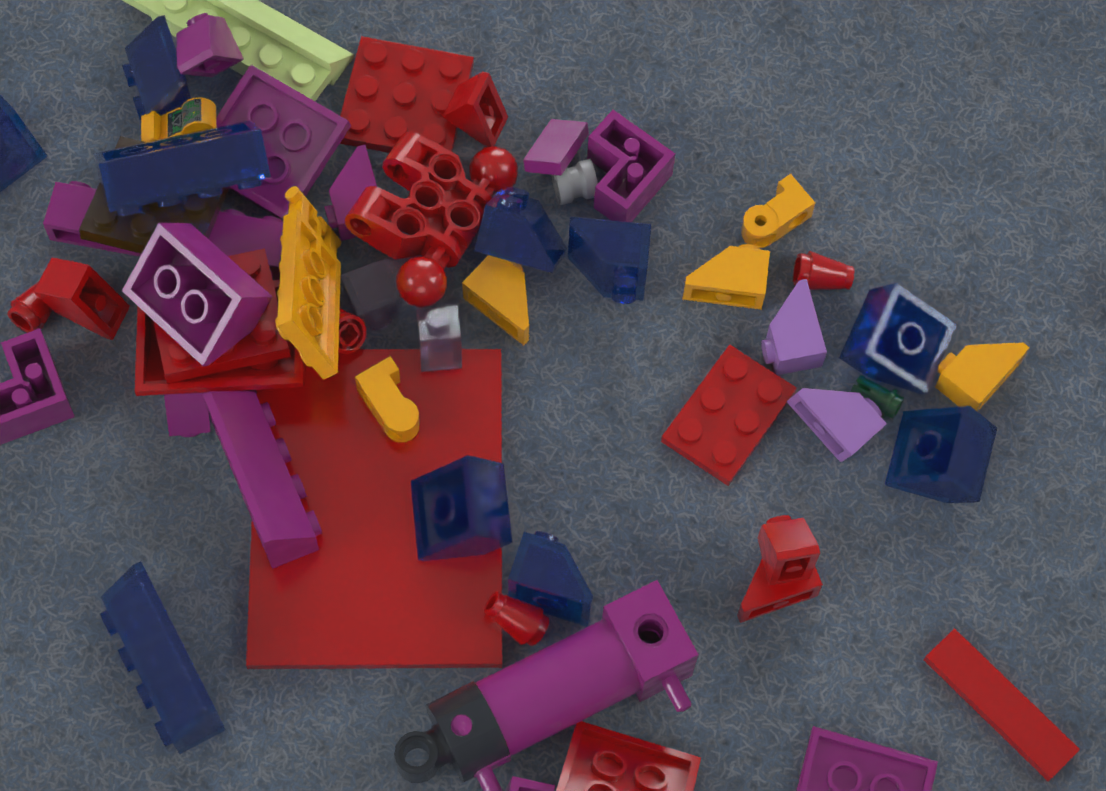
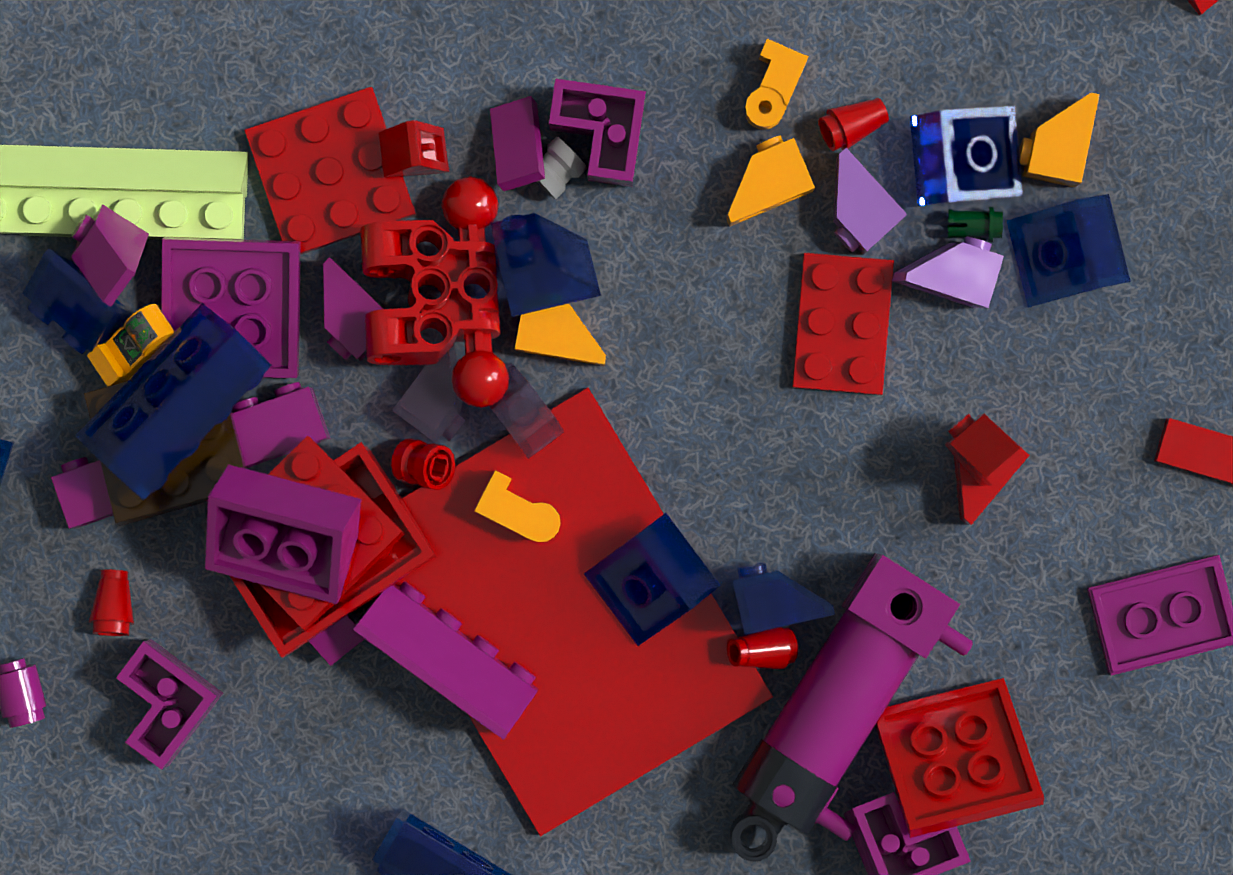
camera: 30 degrees left, 20 degrees up
(82, 297) = (155, 579): red slope -> none
(309, 285) = (377, 450): light orange hinge -> none
(611, 256) = (647, 236): clear blue slope -> none

